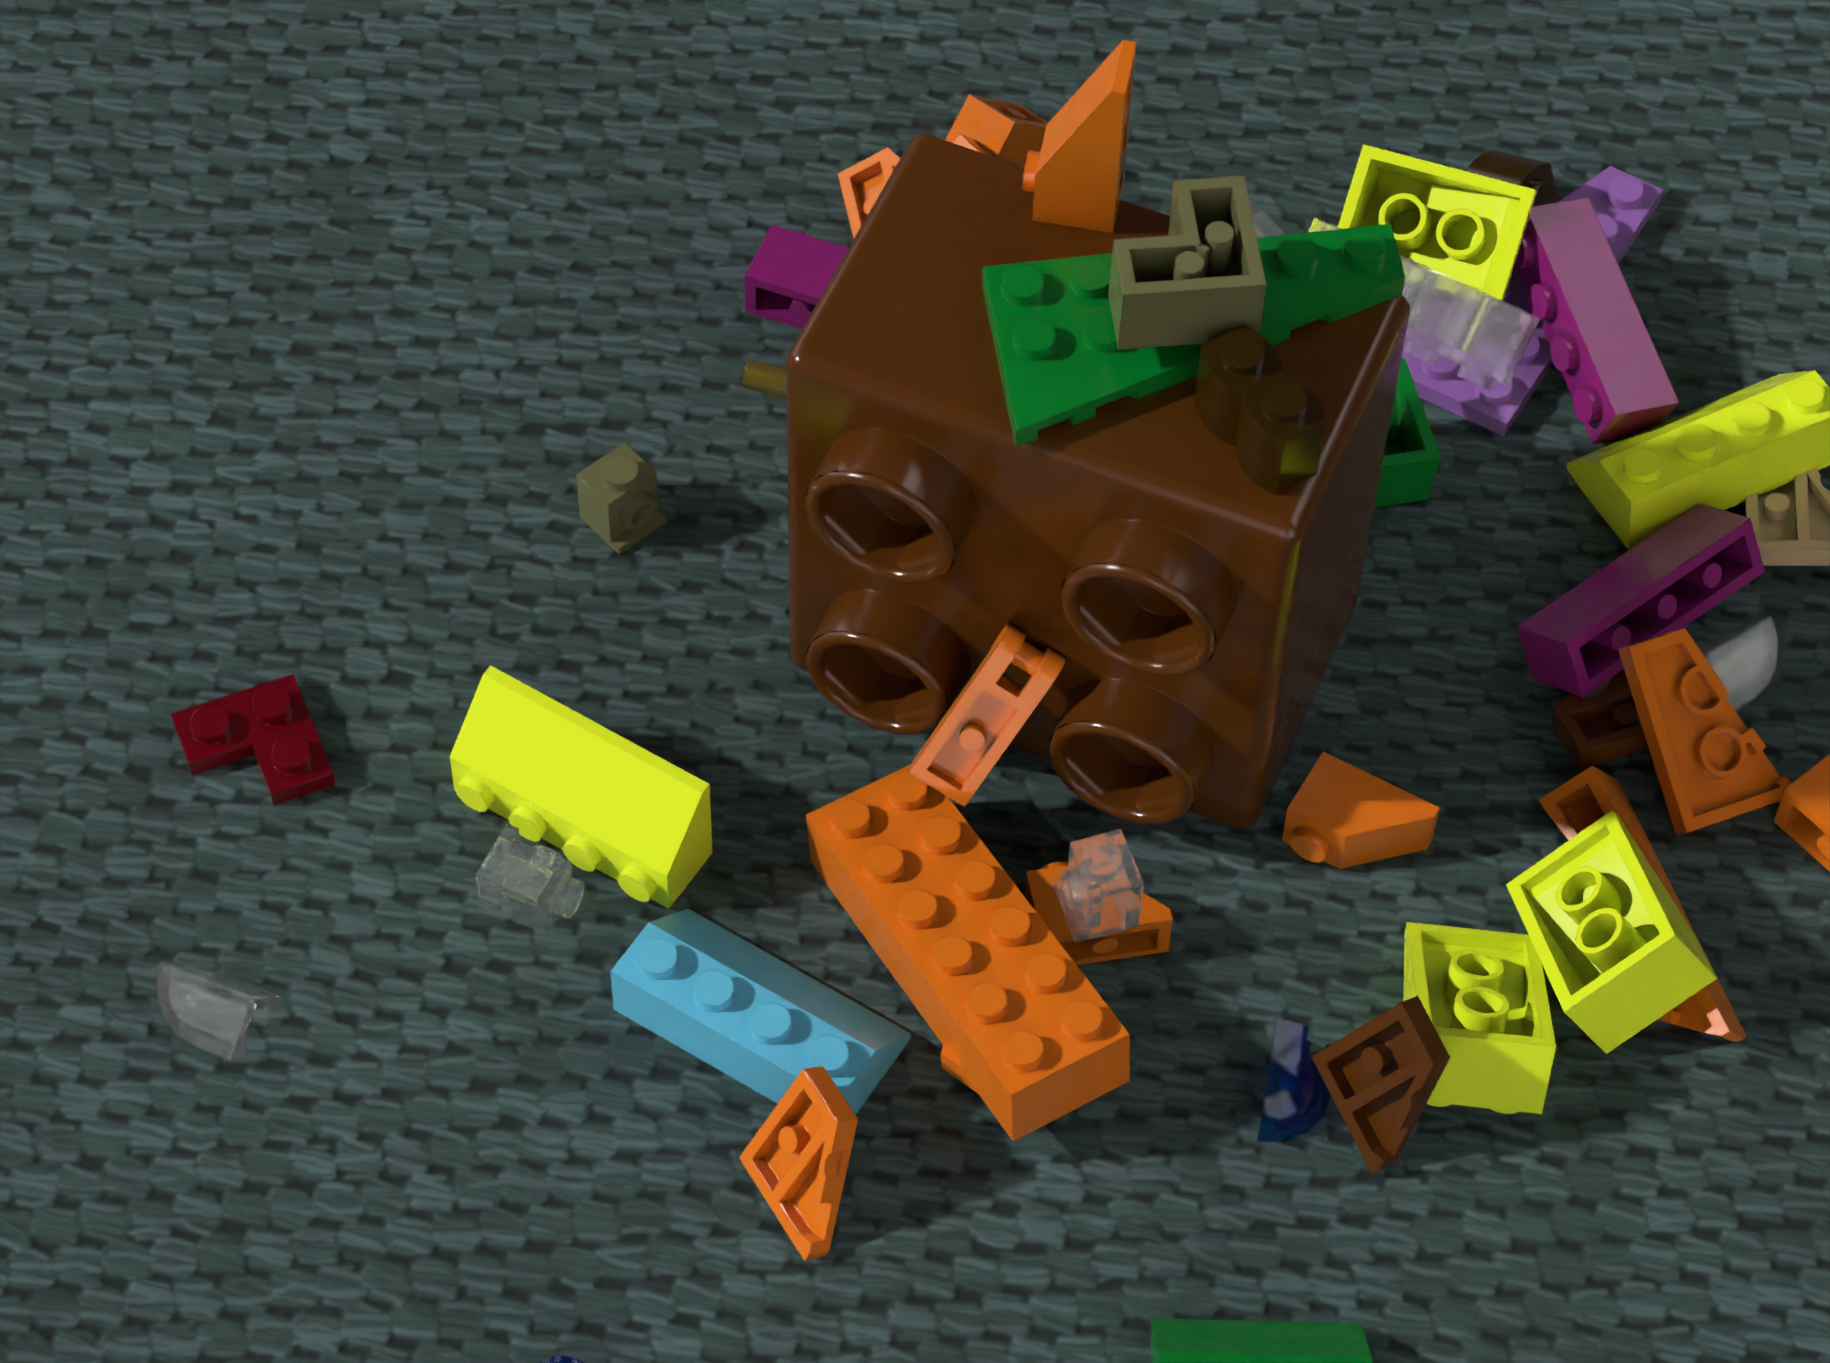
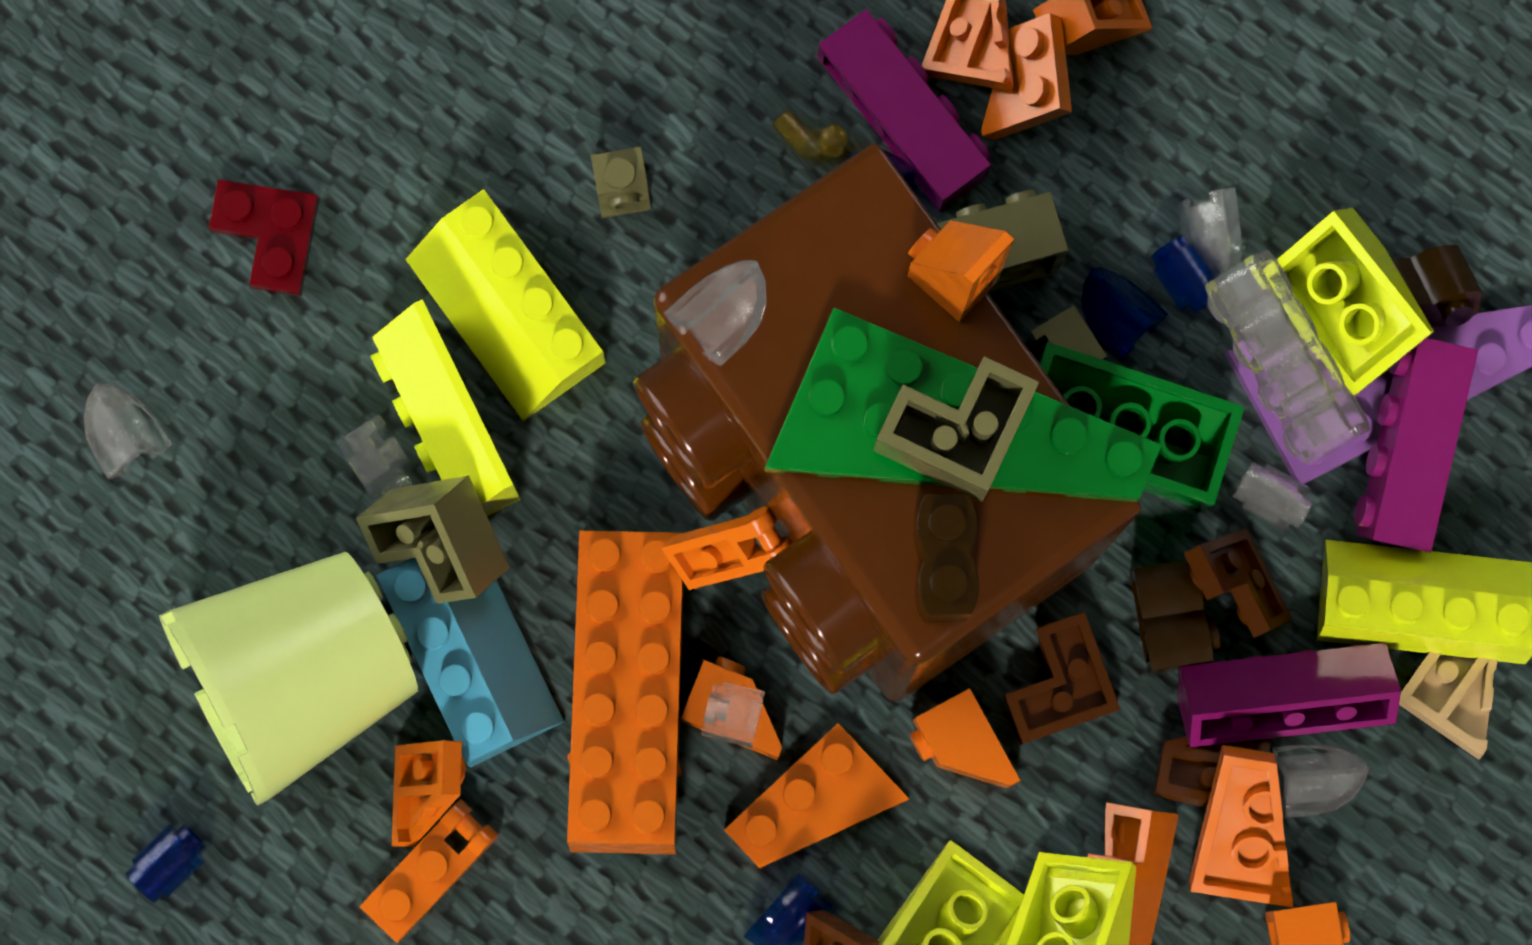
camera: 30 degrees right, 25 degrees up
(573, 1102) = (292, 667): none -> yellowish green cone
(581, 651) = (504, 306): none -> neon yellow slope
(660, 871) = (443, 530): none -> olive brick
(864, 1265) = (427, 872): none -> orange plate
(871, 322) = (722, 309): none -> clear brick
(1236, 962) = (814, 799): none -> orange wing
(1424, 710) = (1077, 685): none -> reddish brown plate
(1471, 595) = (1172, 618): none -> dark brown brick
(1488, 444) = (1273, 496): none -> clear brick
(1497, 520) = (1237, 566): none -> reddish brown plate

